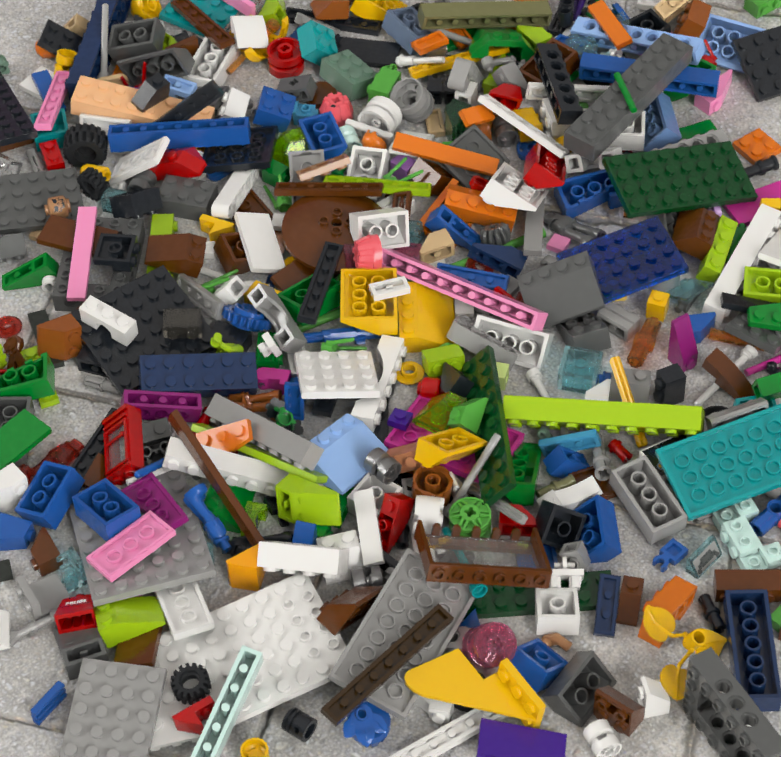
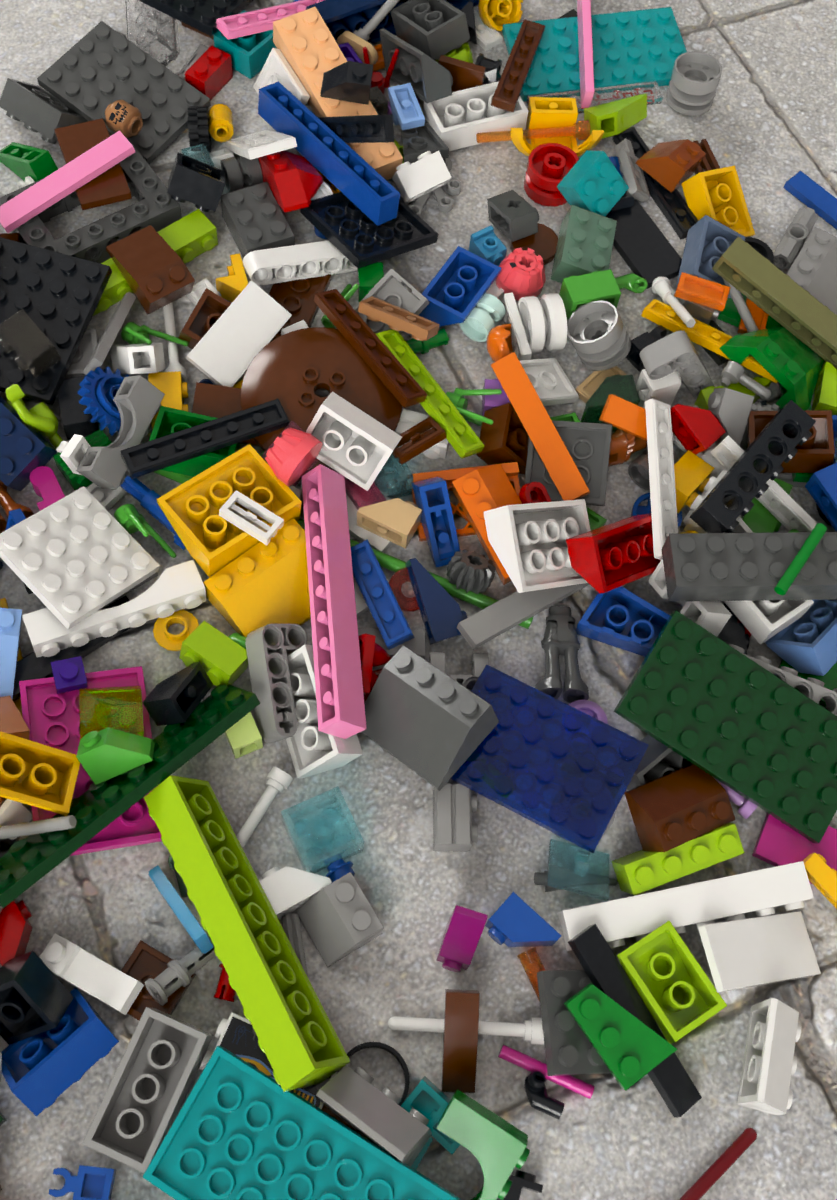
camera: 40 degrees right, 15 degrees up
(85, 145) = (239, 83): black tyre -> none
(117, 251) = (91, 211): black plate -> none
(249, 32) = (542, 112): white slope -> none
(274, 109) = (459, 214): blue brick -> none
(287, 142) = (421, 266): clear neon green slope -> none
(368, 163) = (459, 362): white slope -> none
(429, 387) = (156, 668): red head -> none
(526, 469) = (93, 882): green wedge -> none
(557, 485) = (98, 943): olive pin -> none
(558, 243) = (528, 652): bright pink tile -> none
(564, 461) = (153, 926): blue slope -> none
(585, 333) = (390, 796): dark grey slope -> none
(625, 393) = (323, 910): yellow axle -> none
(644, 342) = (442, 876): clear orange piece -> none
(657, 305) = (518, 848): yellow brick -> none
(670, 385) = (378, 969): black brick -> none
(740, 230) = (732, 866): green piece -> none

